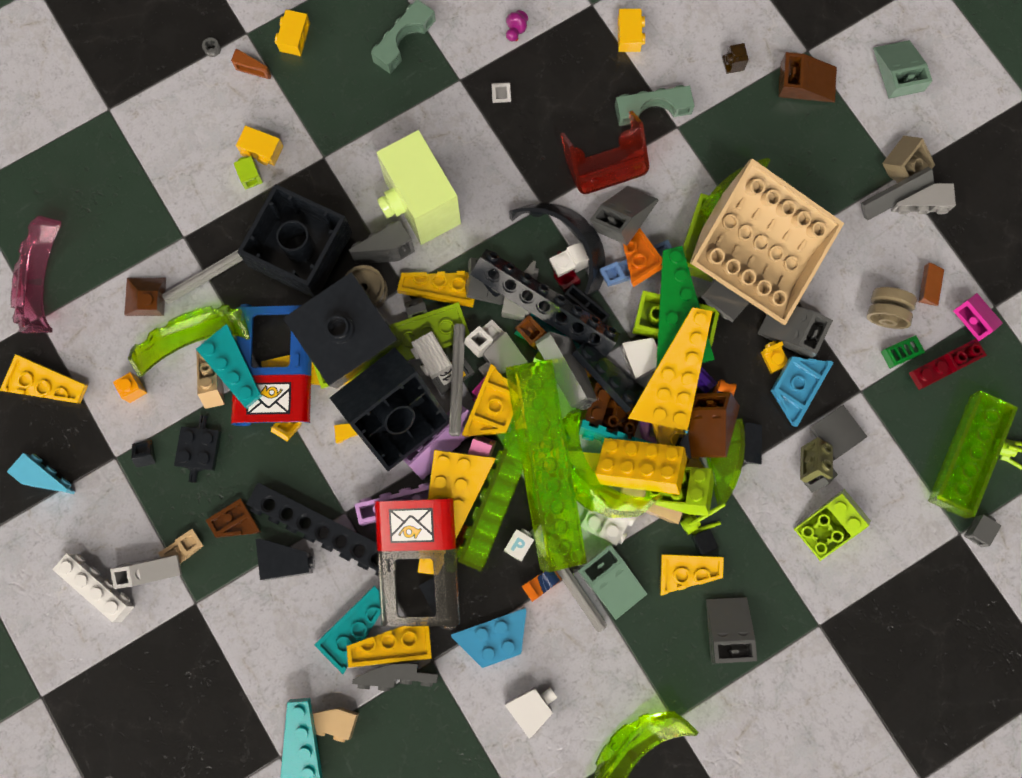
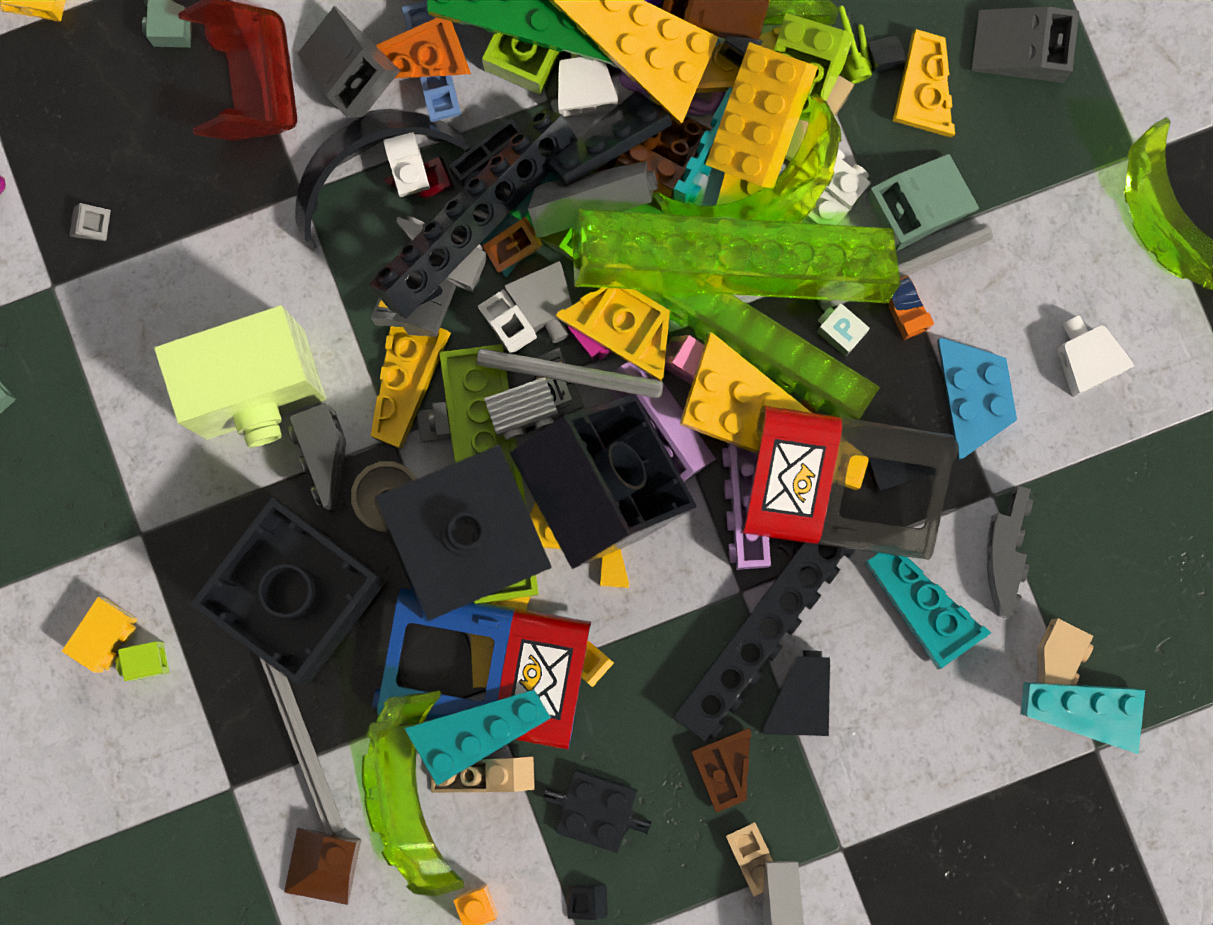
camera: 75 degrees left, 5 degrees up
(393, 646) = (965, 551): yellow wing -> none

